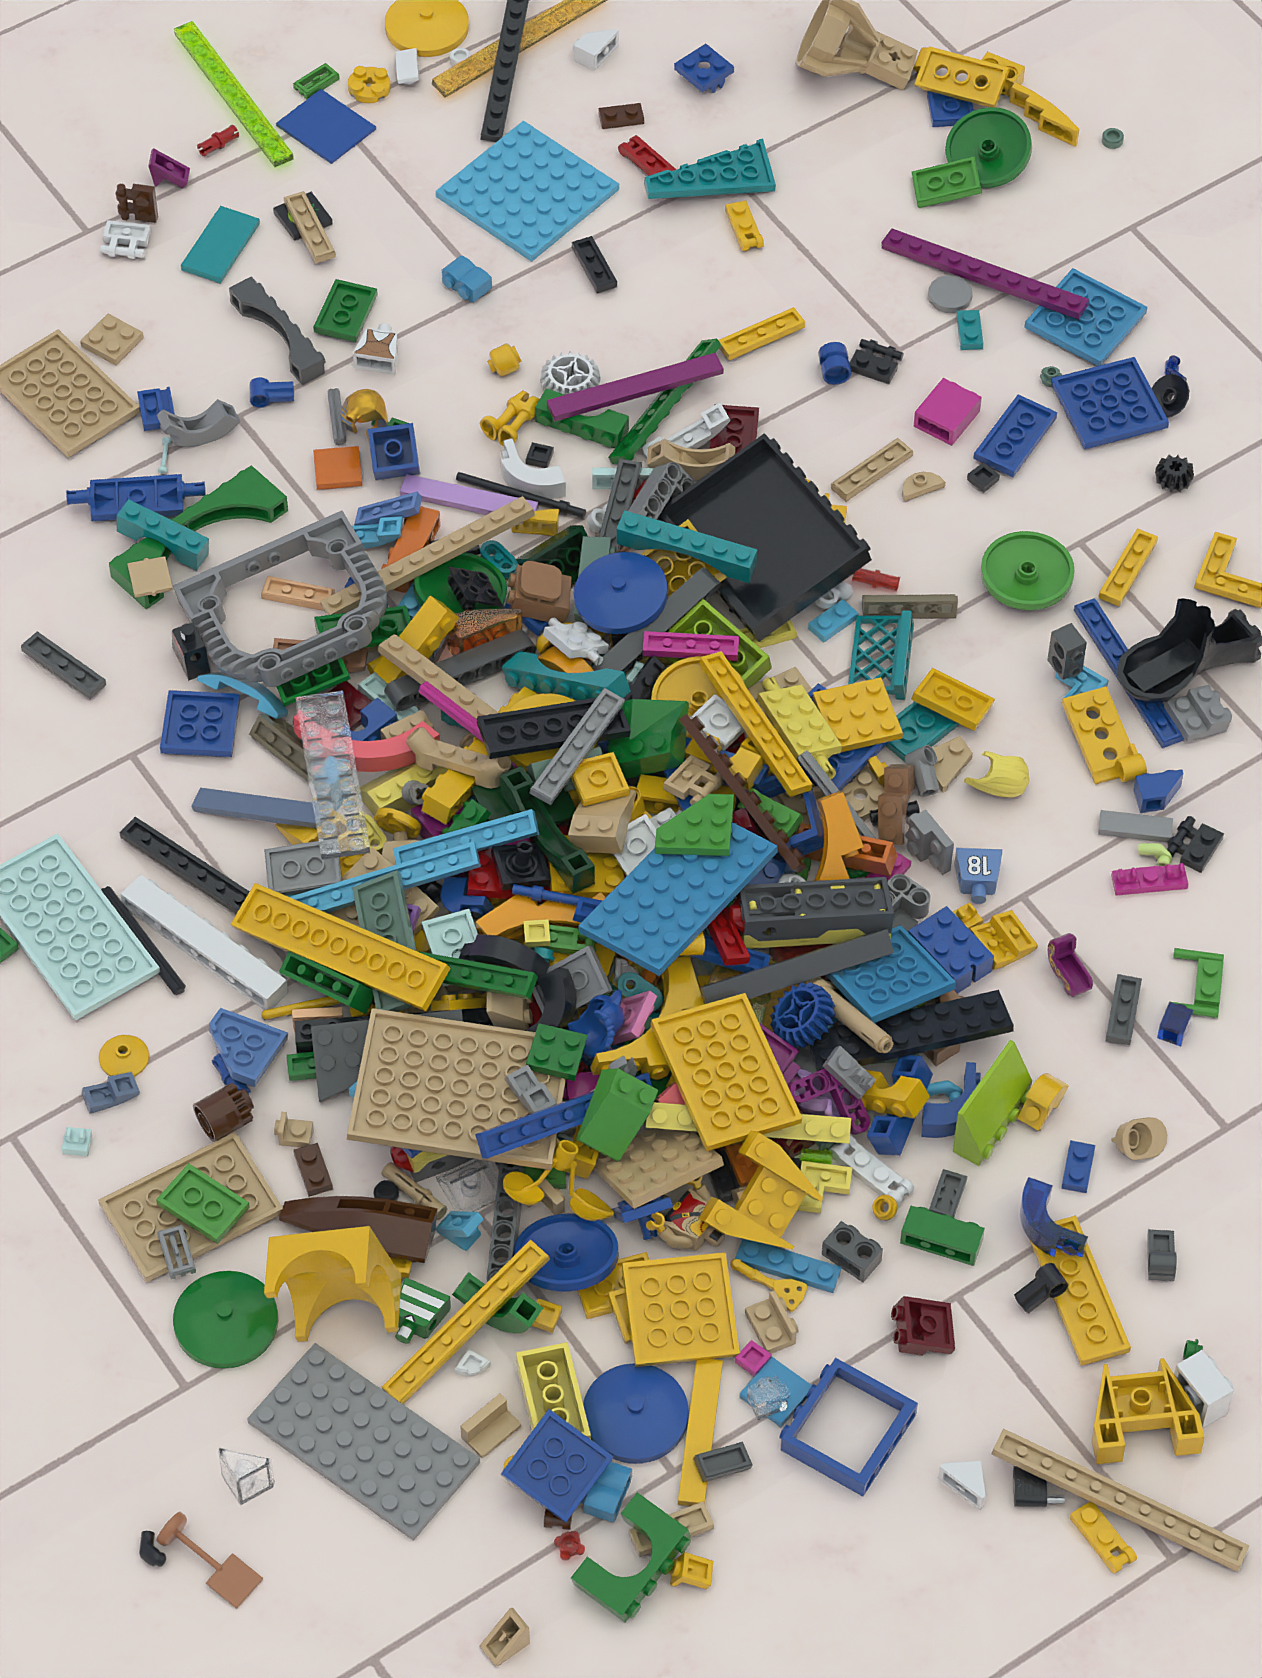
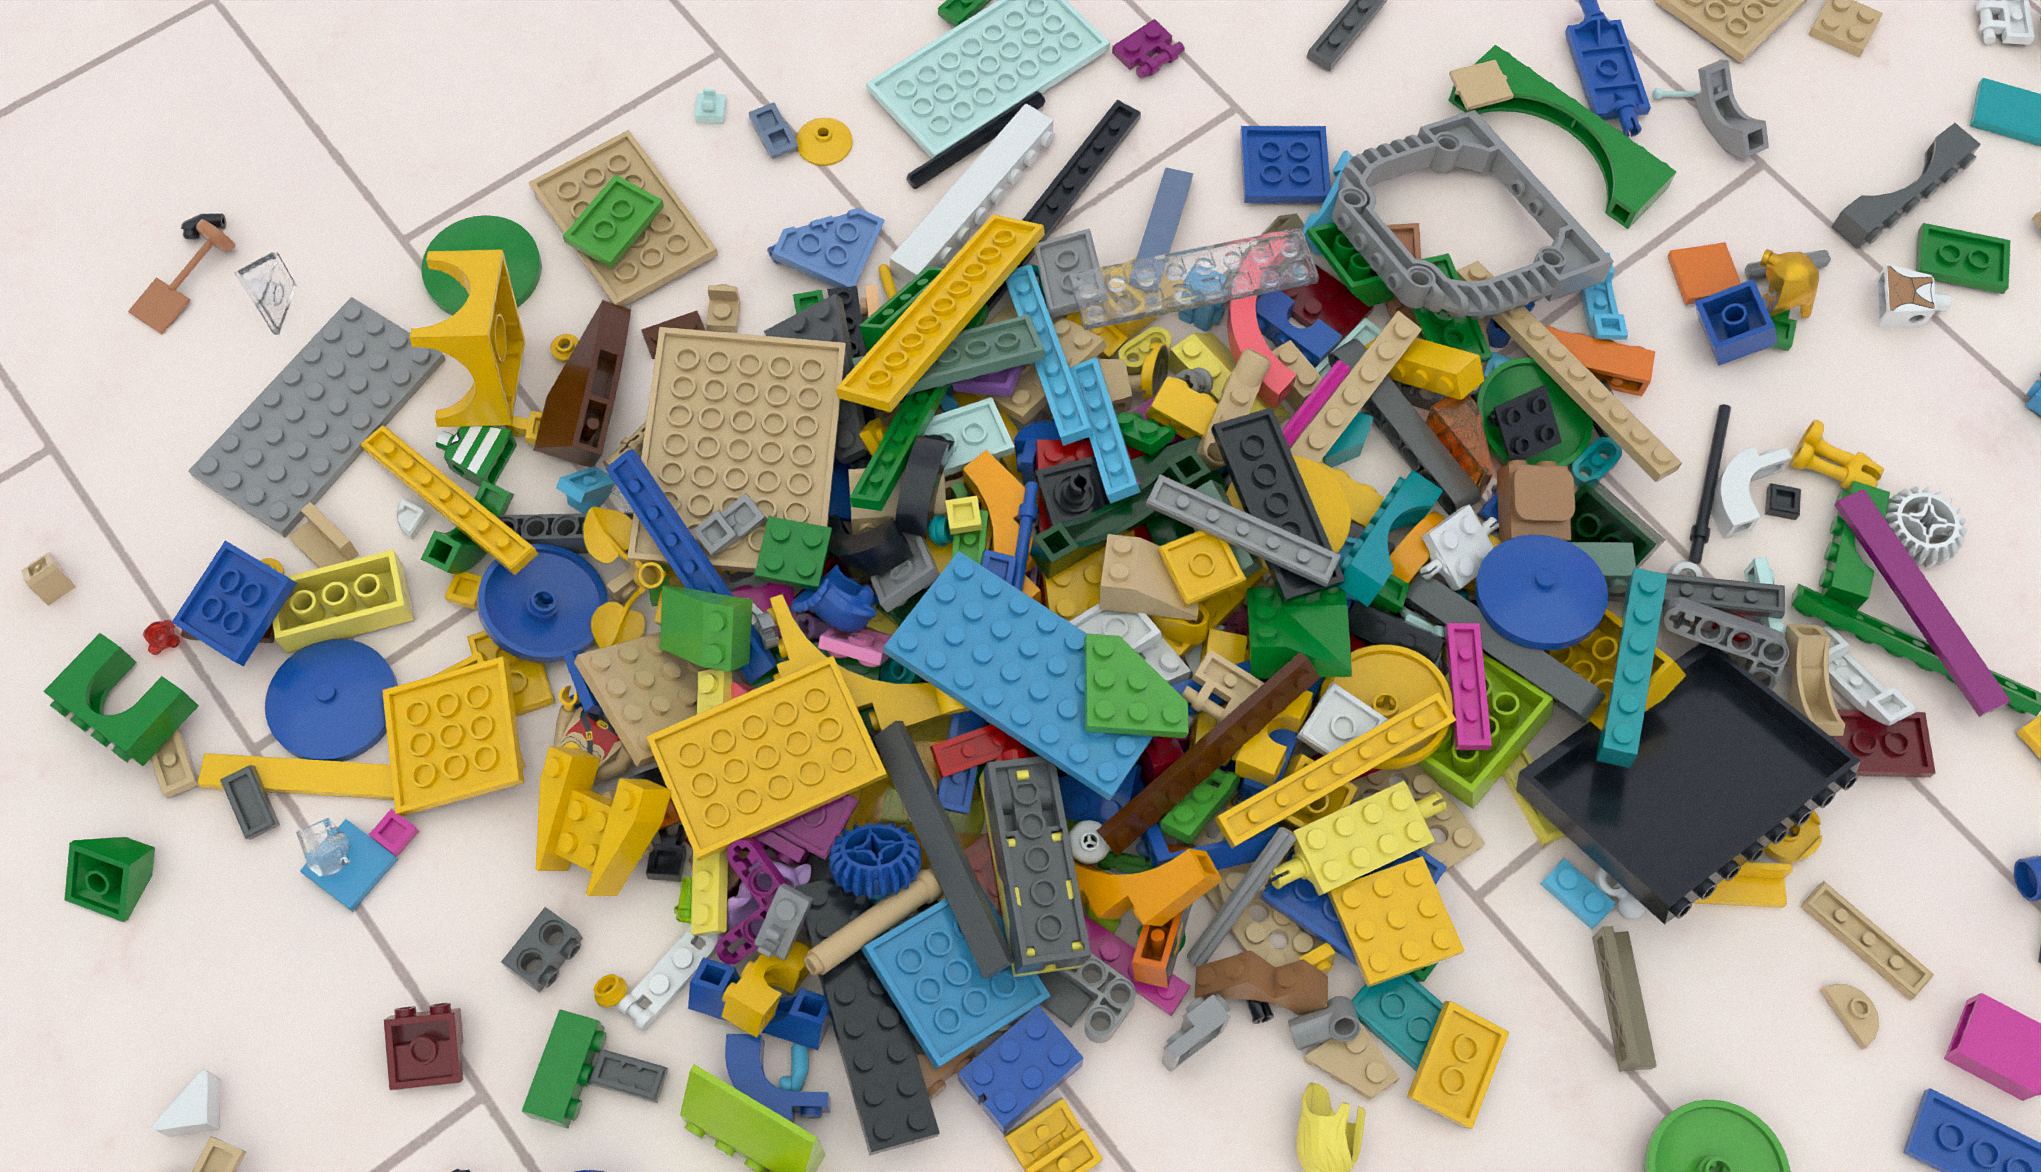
camera: 85 degrees right, 10 degrees up
(58, 815) = (1143, 44): none -> magenta plate
(151, 403) = (1753, 75): blue plate -> none
(181, 1270) = (557, 209): light grey tile -> none
(186, 545) = (1549, 93): teal arch -> none
(188, 642) = (1383, 129): black torso -> none
(224, 1111) = (736, 230): reddish brown gear -> none
(264, 392) = (1804, 184): blue piece -> none
(295, 592) = (1499, 241): light nougat tile -> none
(386, 1190) = (637, 409): black plate -> none
(404, 506) = (1640, 325): medium blue plate -> none
(456, 495) = (1689, 423): lavender tile -> none
(504, 360) = (1931, 444): yellow head -> none
(543, 523) = (1666, 507): yellow slope -> none
(608, 1492) = (219, 675): dark azure brick -> none
(691, 1570) = (104, 774): yellow bracket -> none
(772, 1323) = (444, 854): tan bracket -> none
(777, 1285) = (500, 860): yellow piece -> none
(782, 1555) = (108, 874): none -> green slope
(789, 1265) = (523, 891): dark azure plate -> none
(824, 1178) = (654, 902): light yellow plate -> none
(824, 1464) = (334, 987): blue window -> none
(876, 579) = (1661, 952): clear red pin -> none
(901, 651) = (1532, 989): teal fence -> none
(968, 915) = (1084, 1093): yellow tile -> none
(977, 871) = (1159, 1108): medium blue torso -> none
(983, 477) = (1889, 1105): black plate -> none

